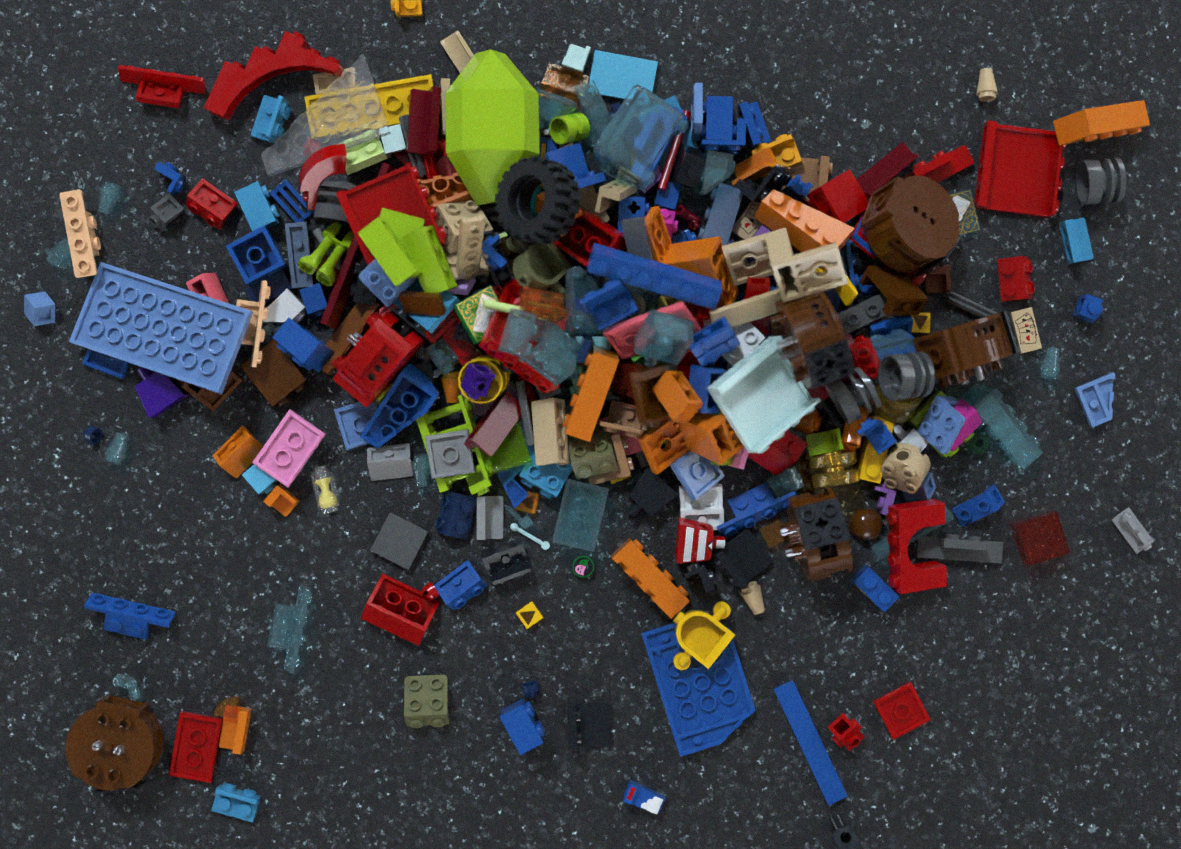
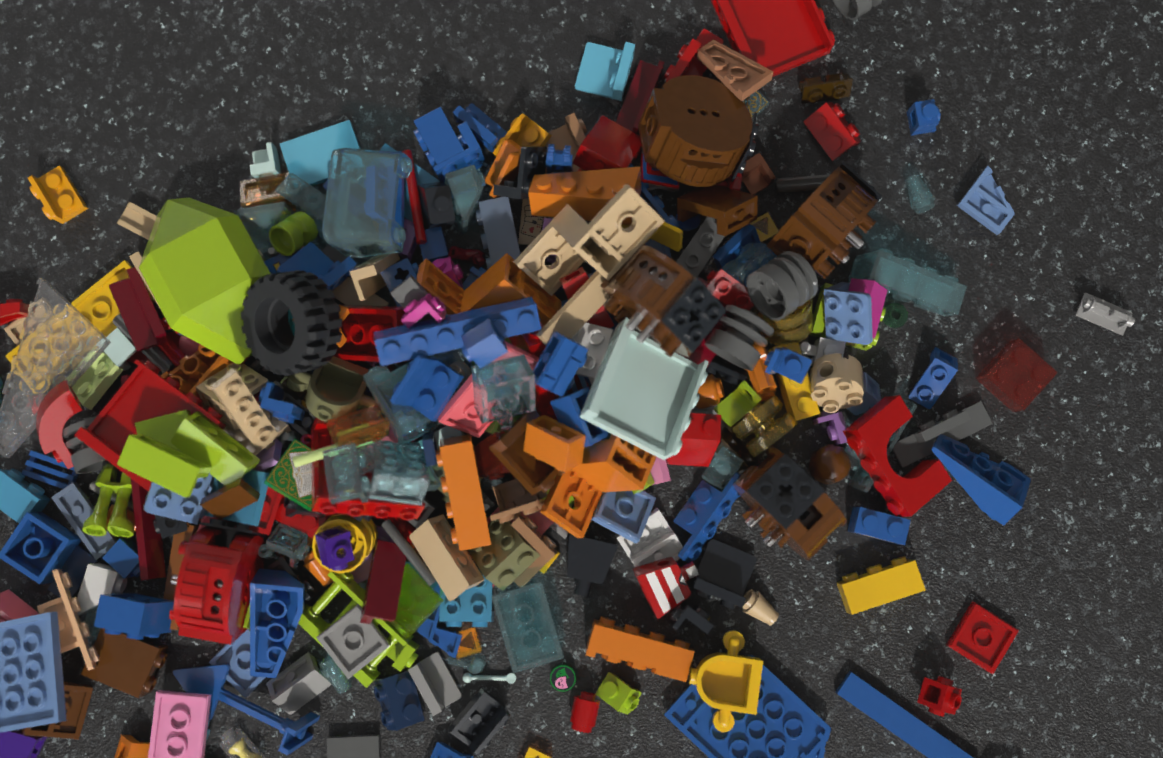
camera: 25 degrees left, 5 degrees down
(330, 423) = (211, 680): none -> blue piece
(585, 599) = (584, 712): none -> red brick
(617, 600) = (618, 694): none -> lime bracket
(637, 245) = (417, 309): none -> dark pink bracket
(669, 298) = (483, 343): none -> blue brick
(696, 111) = (414, 144): medium blue tile -> none
(772, 534) = (739, 529): clear orange tile -> none
(850, 631) = (880, 585): none -> yellow brick
(871, 134) = (605, 70): none -> medium azure bracket
(967, 192) = (734, 70): none -> nougat wing
(972, 605) = (993, 486): none -> blue wedge
(1025, 330) = (875, 174): tan tile -> none
(1037, 246) = (835, 87): none -> dark brown hinge
(1076, 240) = (869, 60): dark azure panel -> none

